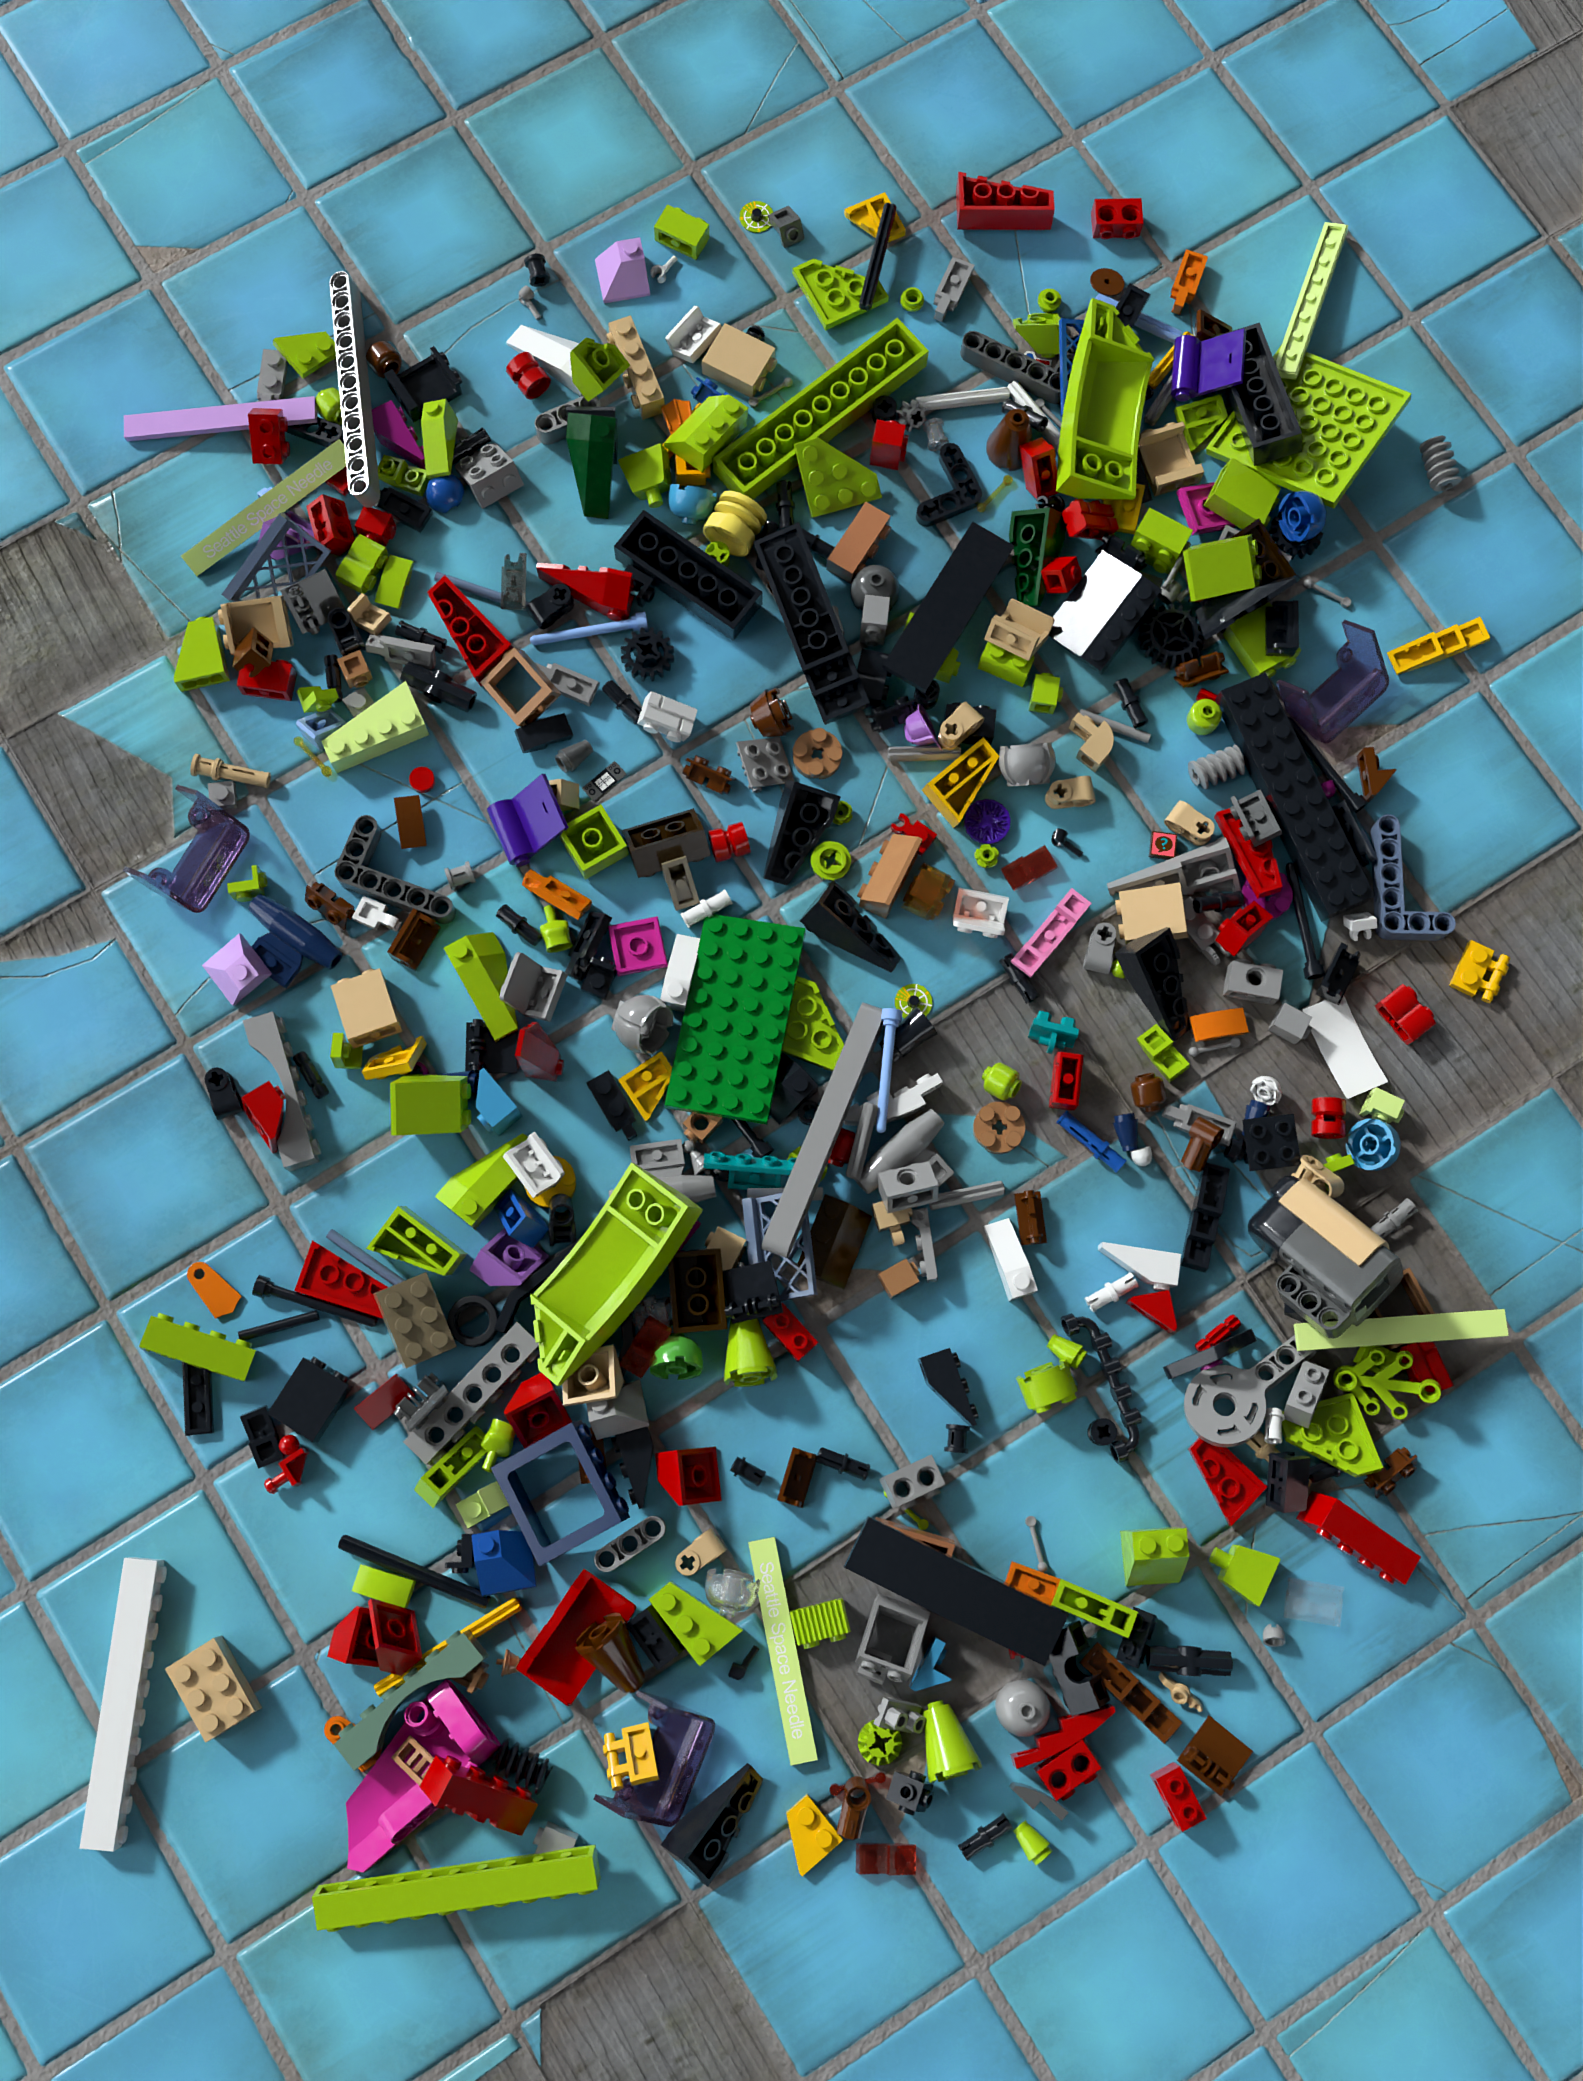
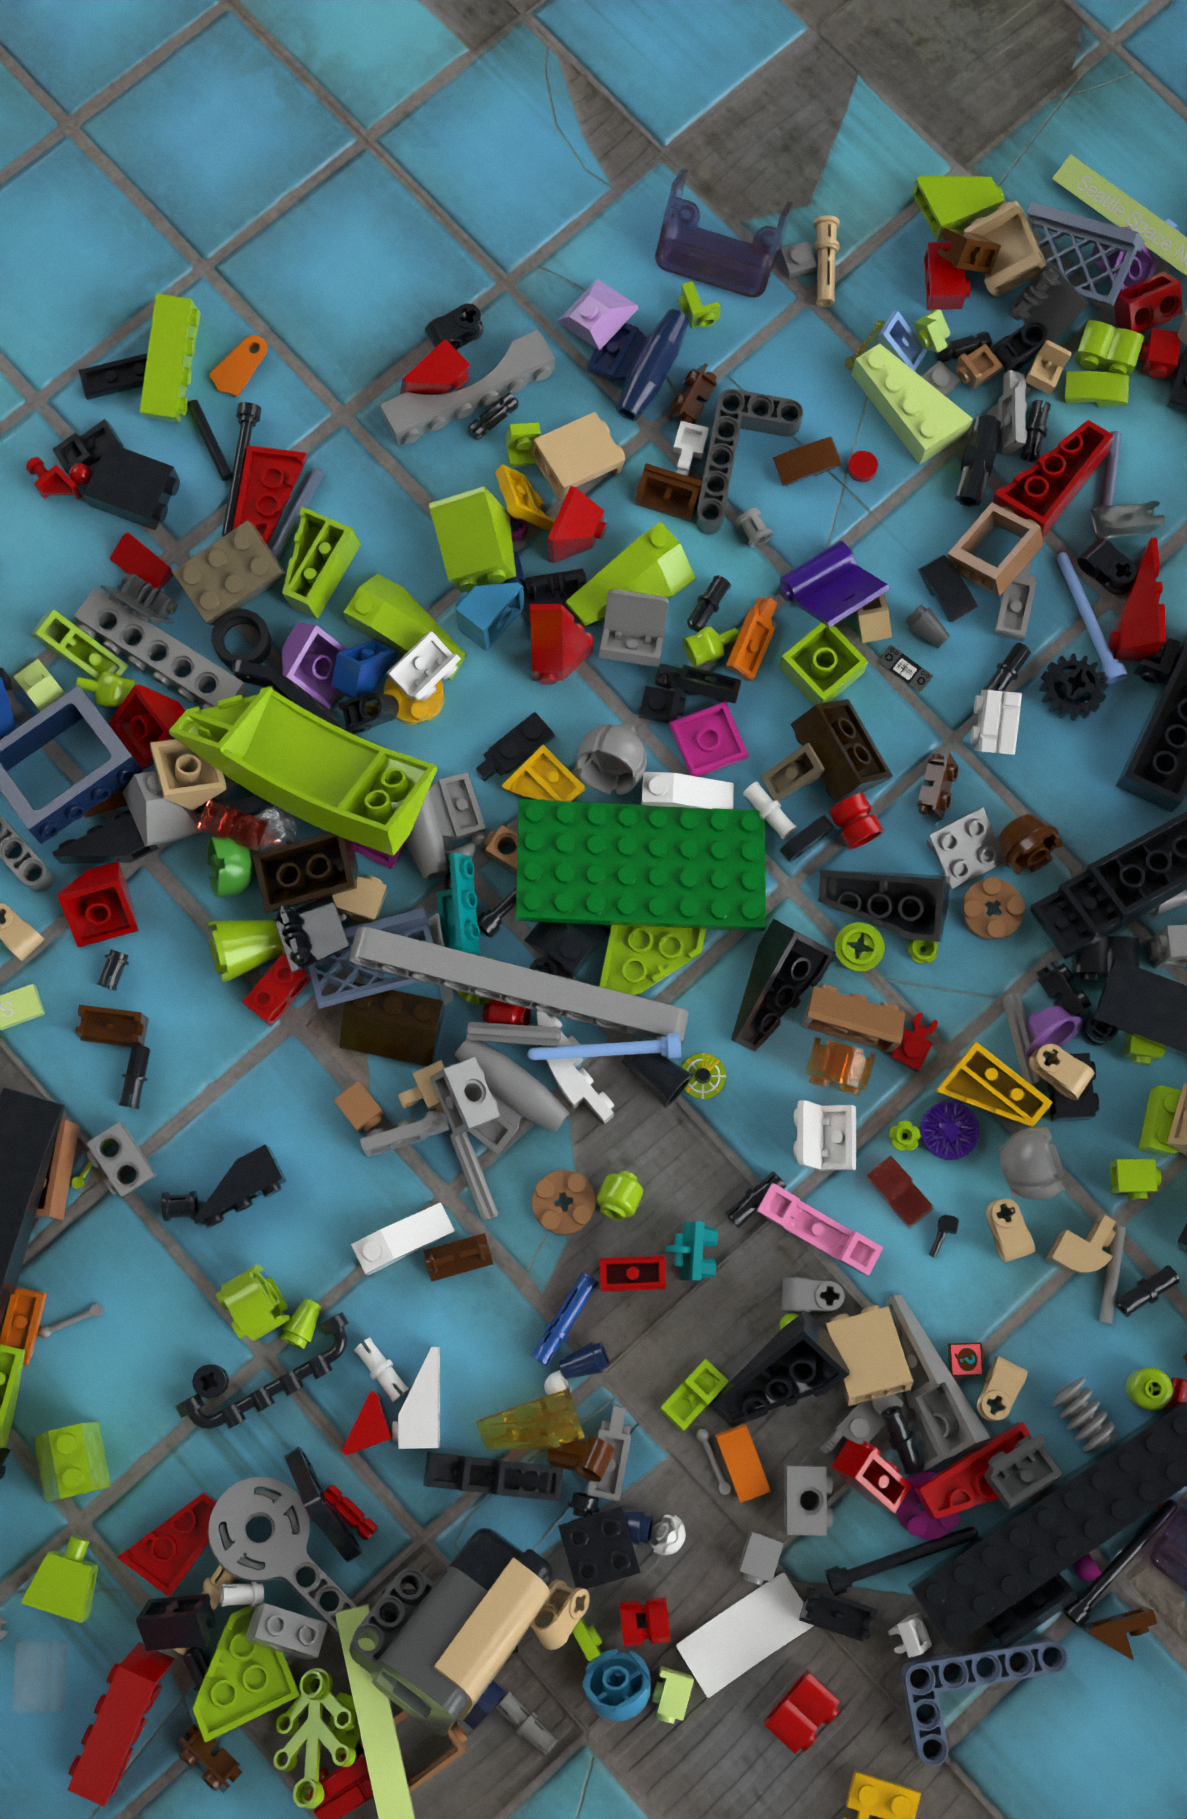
camera: 85 degrees right, 0 degrees up
(431, 1019) = (575, 527): none -> red slope
(735, 883) = (807, 838): none -> black beam
(1148, 1092) = (638, 1382): reddish brown head -> none
(1171, 1174) = (536, 1424): none -> clear yellow slope

